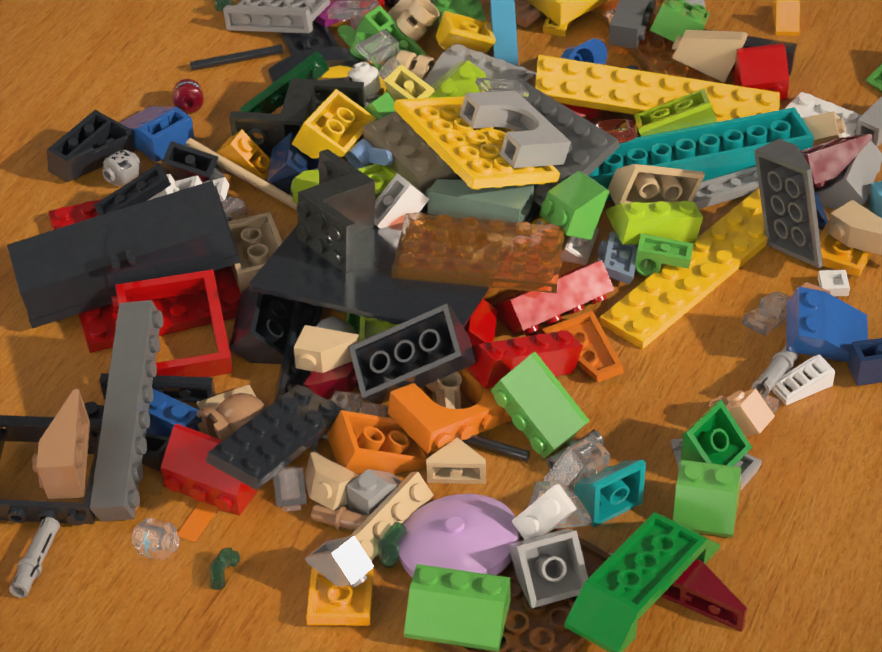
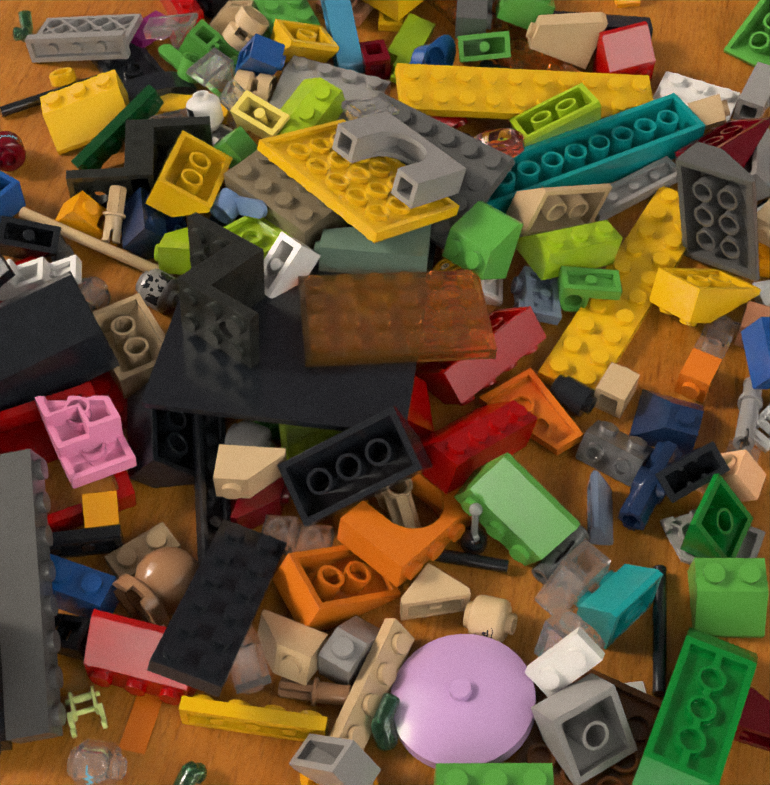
camera: 15 degrees left, 10 degrees up
(144, 506) = (73, 715): none -> yellowish green piece
(199, 362) = (100, 509): none -> light orange tile
(200, 308) = (86, 437): none -> bright pink slope
(249, 43) = (62, 77): none -> yellow tile
(257, 68) = (83, 110): none -> yellow slope
(265, 152) = (114, 214): none -> tan axle
(280, 526) = (243, 718): none -> yellow plate
(285, 214) = (158, 289): none -> light grey head
(425, 40) = (261, 56): none -> blue slope
(499, 485) = (490, 617): none -> tan head
(504, 426) = (474, 533): none -> hinge
(528, 53) = (376, 59): none -> dark red brick
(572, 35) = (412, 34): none -> lime piece
(620, 425) = (599, 510): none -> sand blue slope
(624, 337) = (573, 395): none -> black brick
(630, 53) = (484, 46): none -> bright green slope
(647, 384) = (613, 451): none -> flat silver bracket
(650, 499) = (659, 681): none -> black bar
(663, 338) = (616, 389): none -> tan brick
(670, 412) = (646, 489): none -> dark blue piece
(697, 400) = (691, 471): none -> black slope
(703, 371) = (667, 419): none -> dark blue slope
(742, 336) = (697, 375): none -> orange brick
(763, 272) = (699, 293): none -> yellow slope

